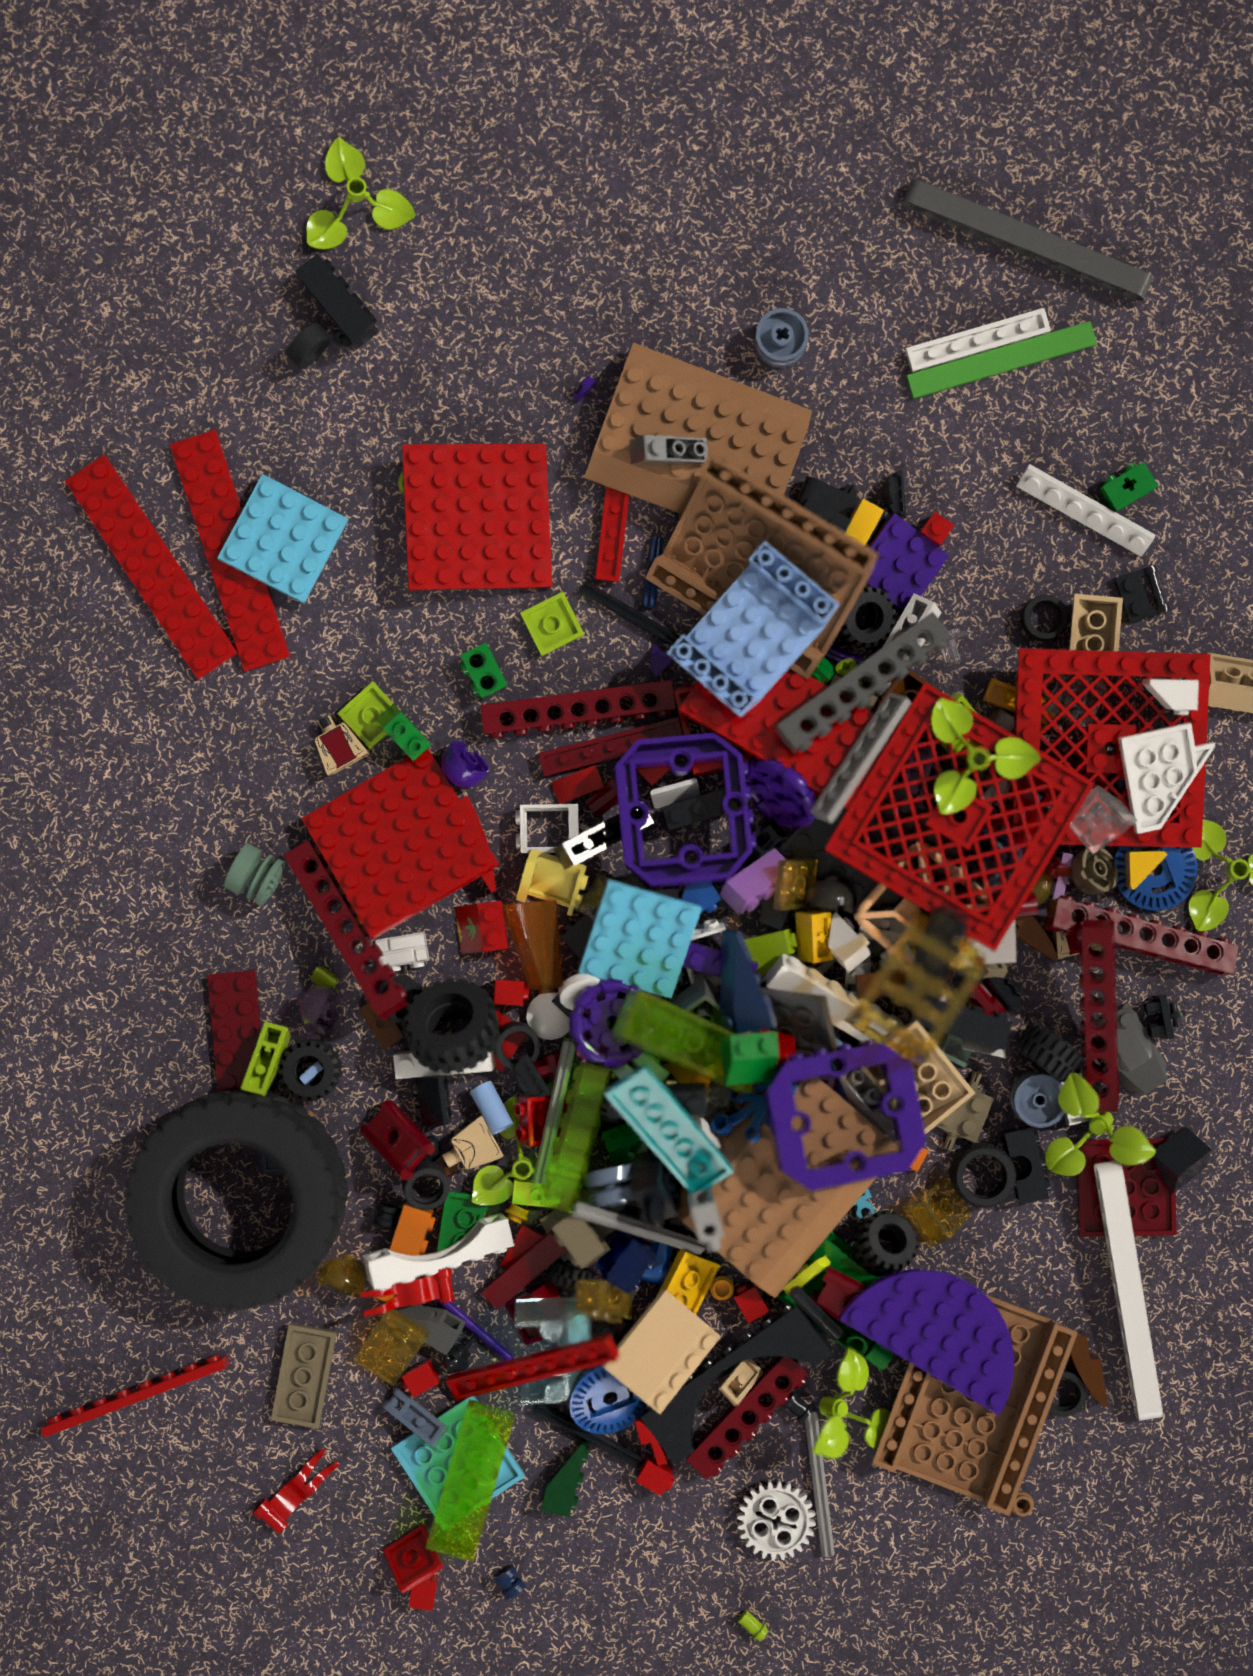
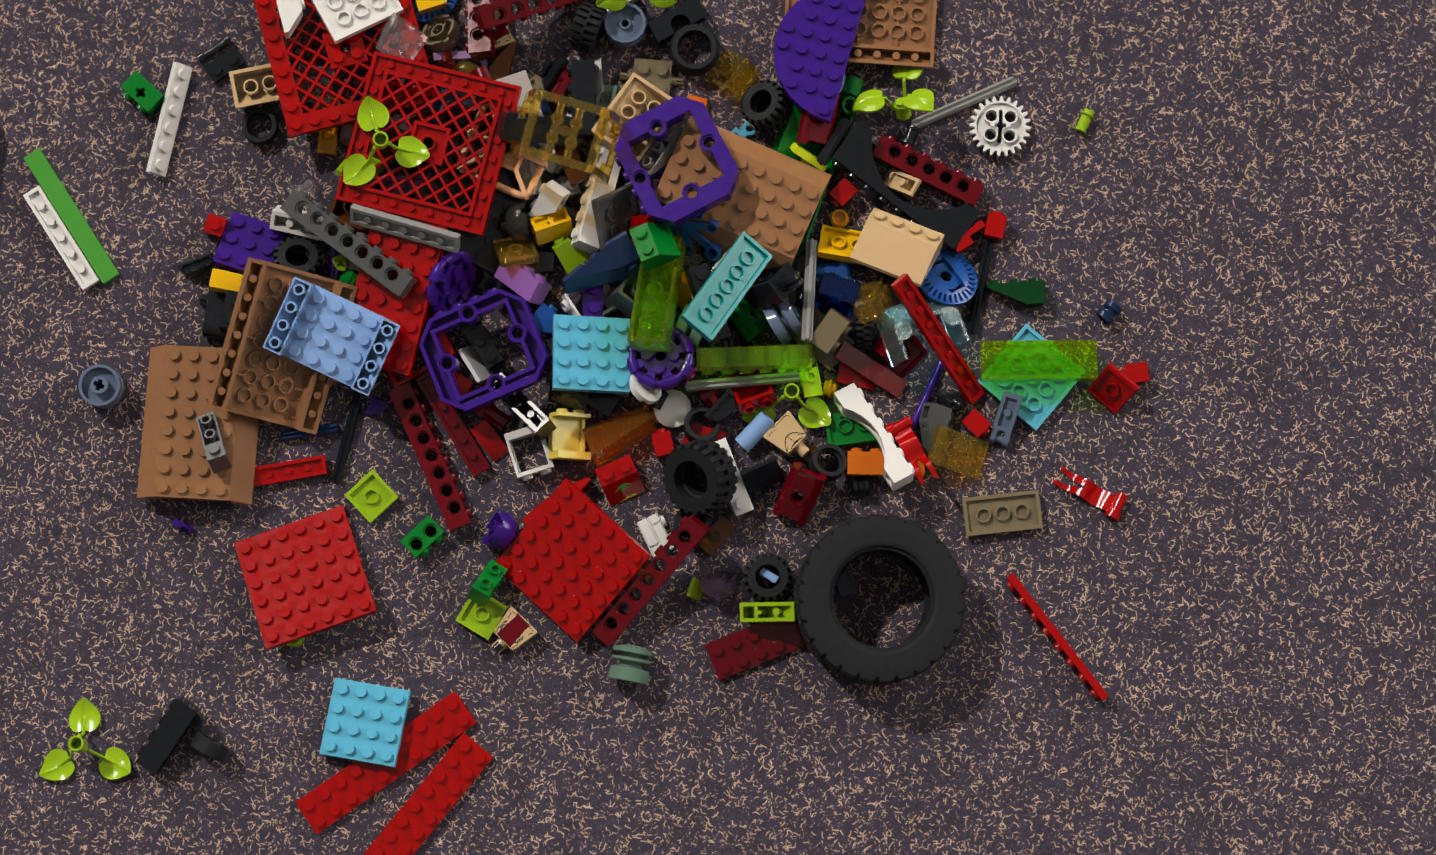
camera: 105 degrees left, 5 degrees down
(343, 1275) = (917, 504): clear yellow cylinder -> none
(706, 1218) = (777, 242): light grey torso -> none

